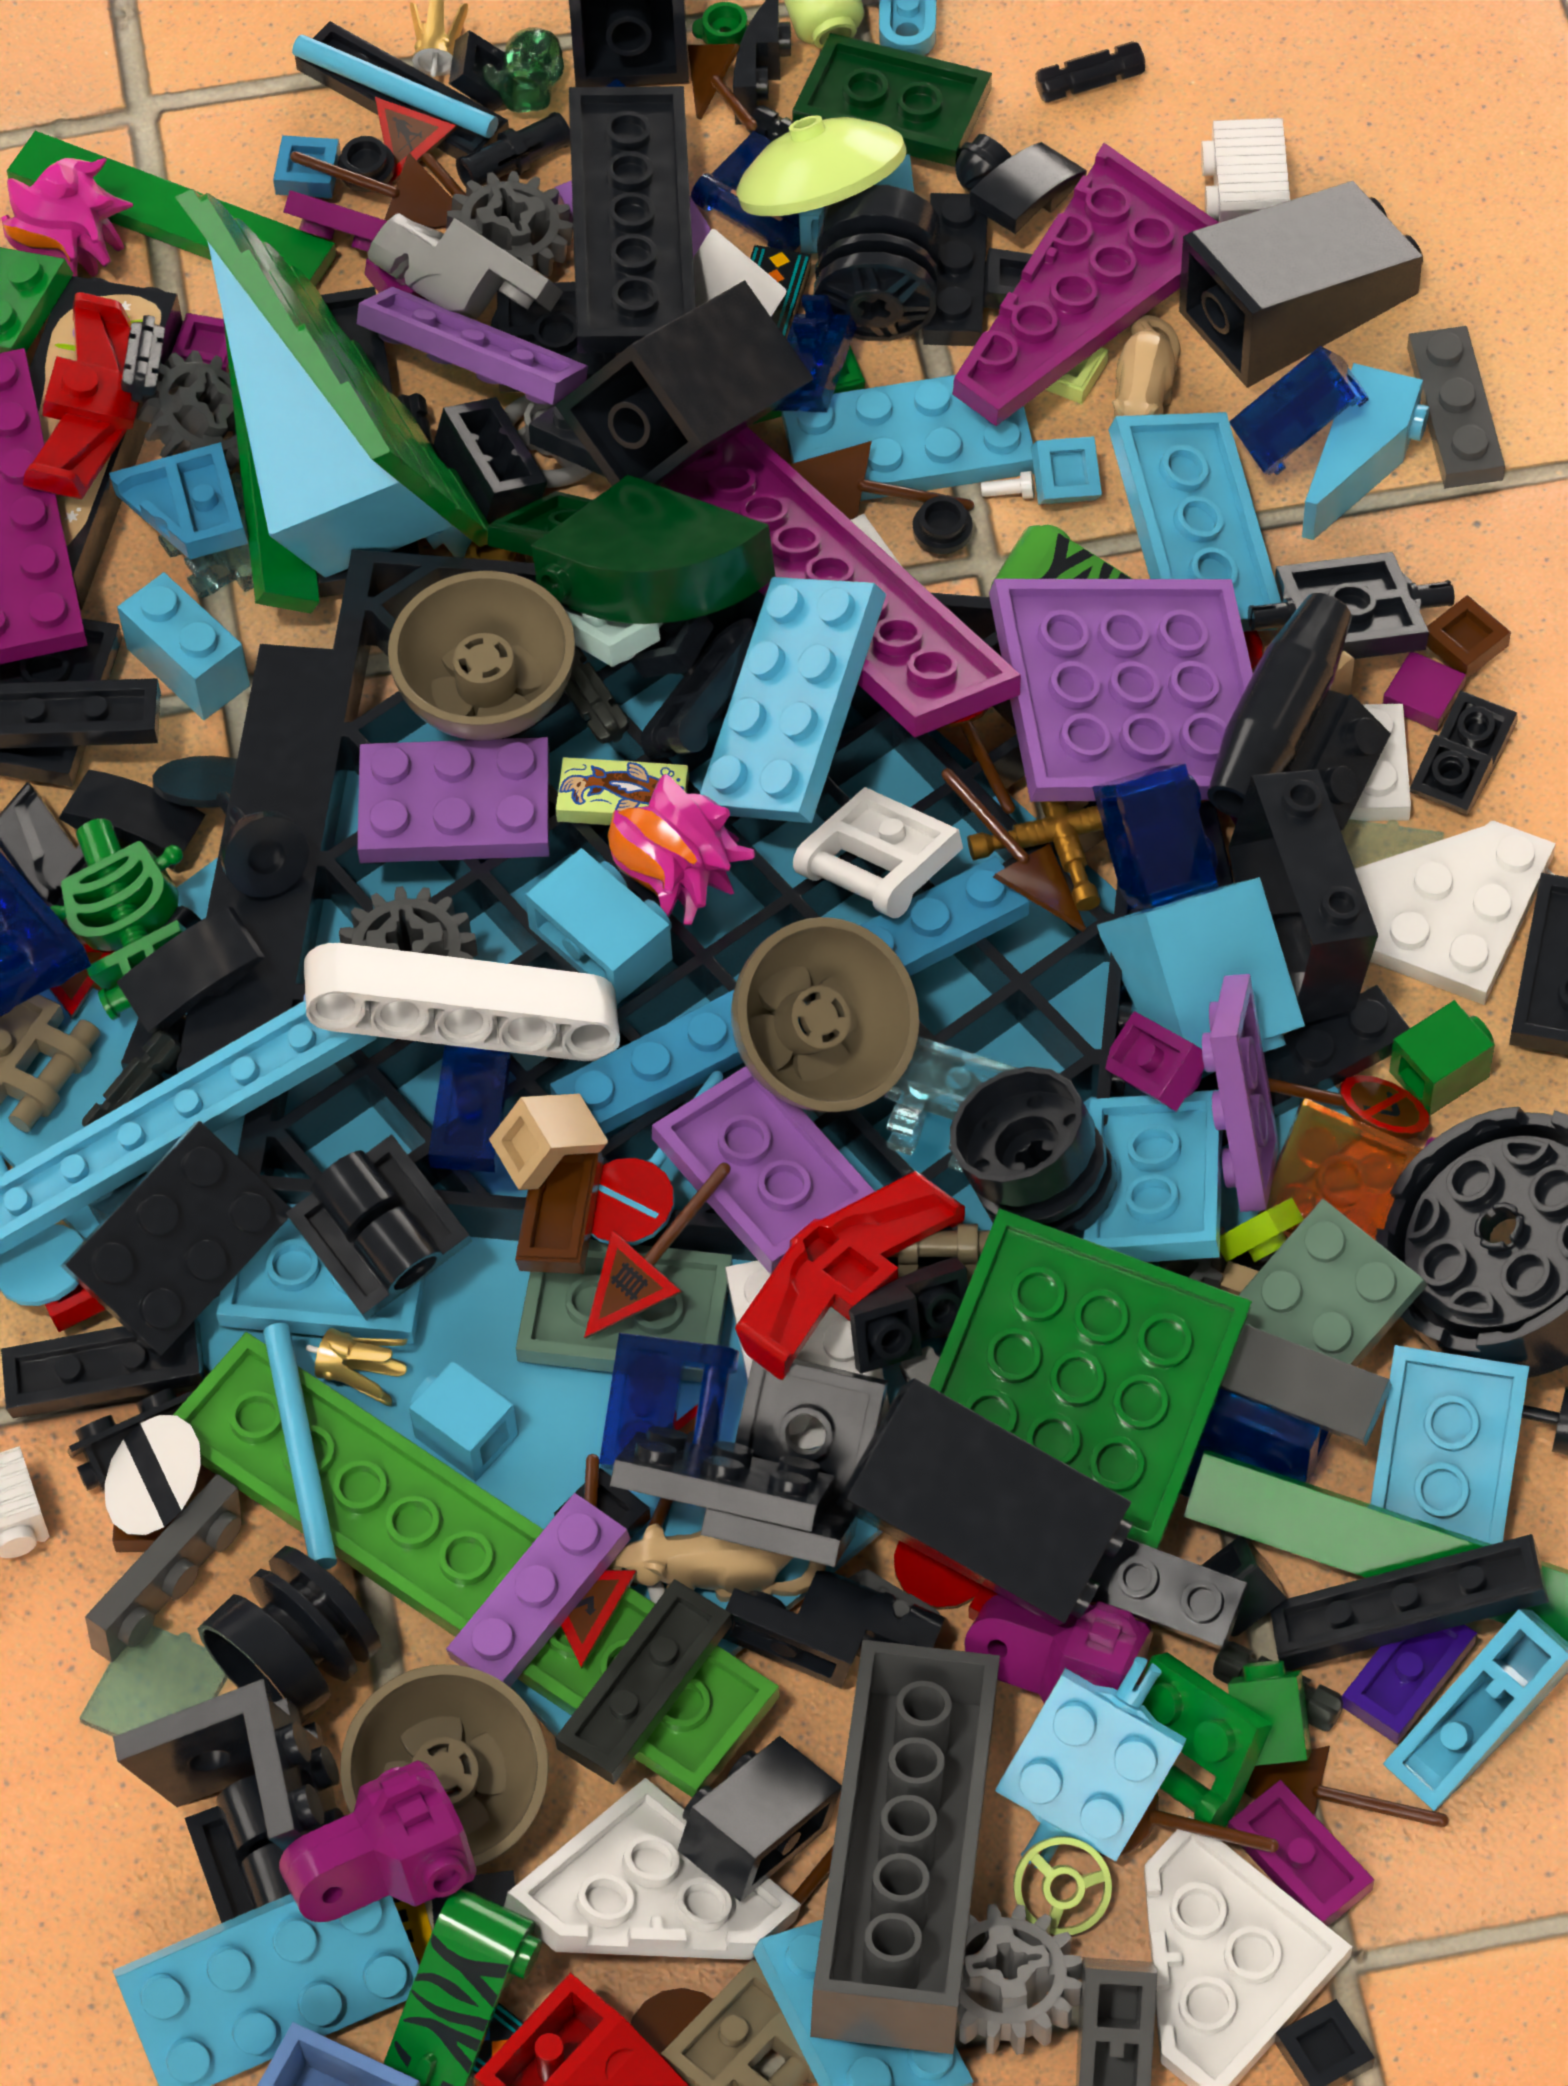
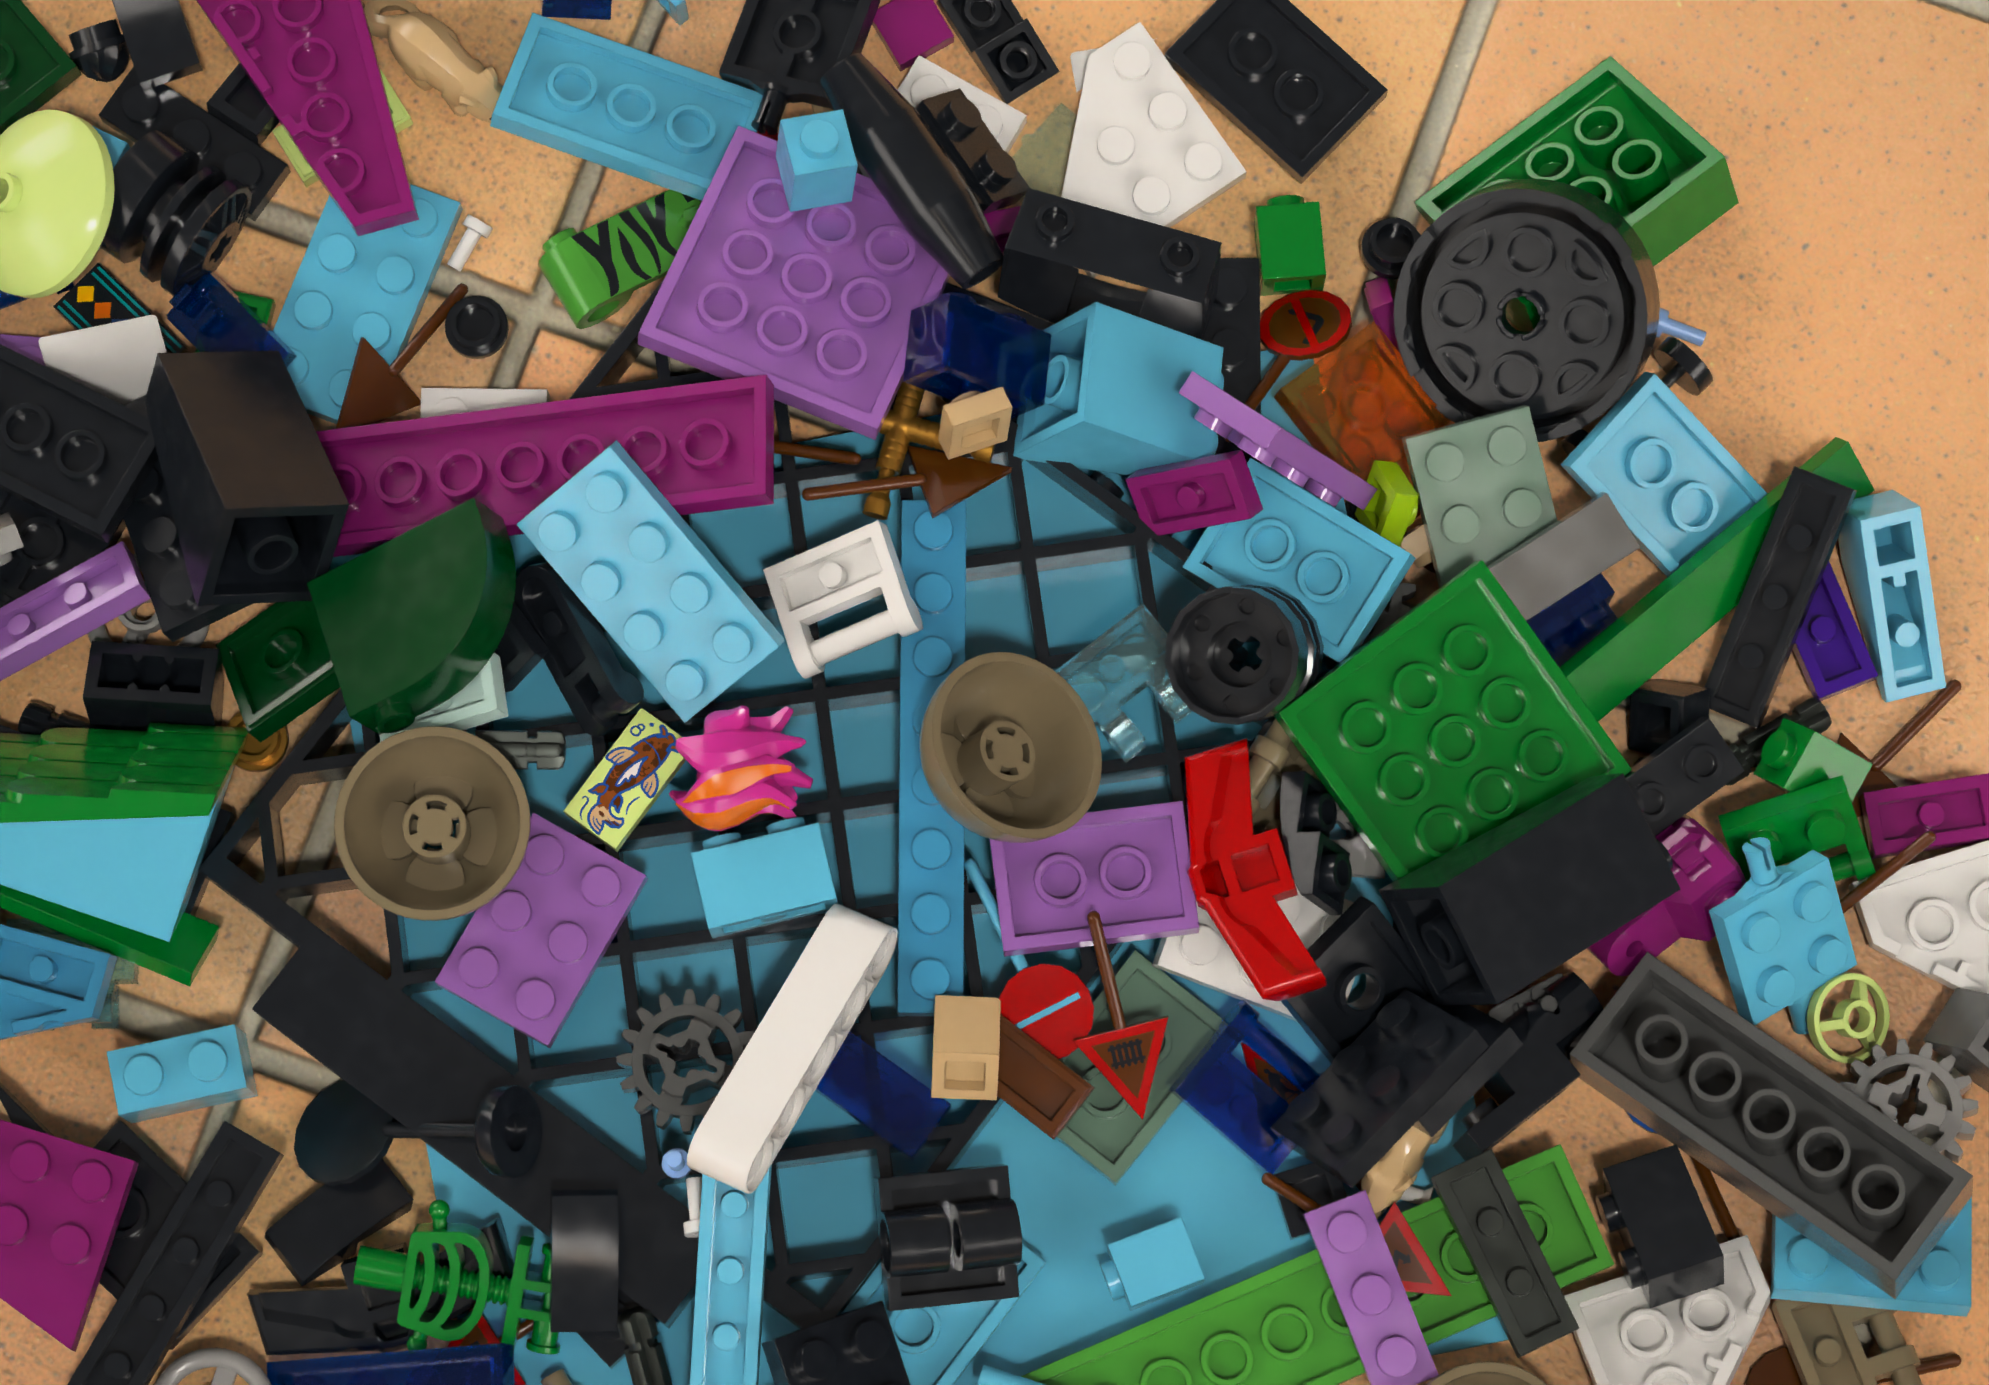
camera: 60 degrees left, 20 degrees up
(342, 1354) = (1032, 1327): pearl gold piece -> none
(1066, 470) = (492, 185): medium azure plate -> none
(1095, 859) = (974, 422): none -> tan plate
(1234, 630) = (816, 160): none -> medium azure brick

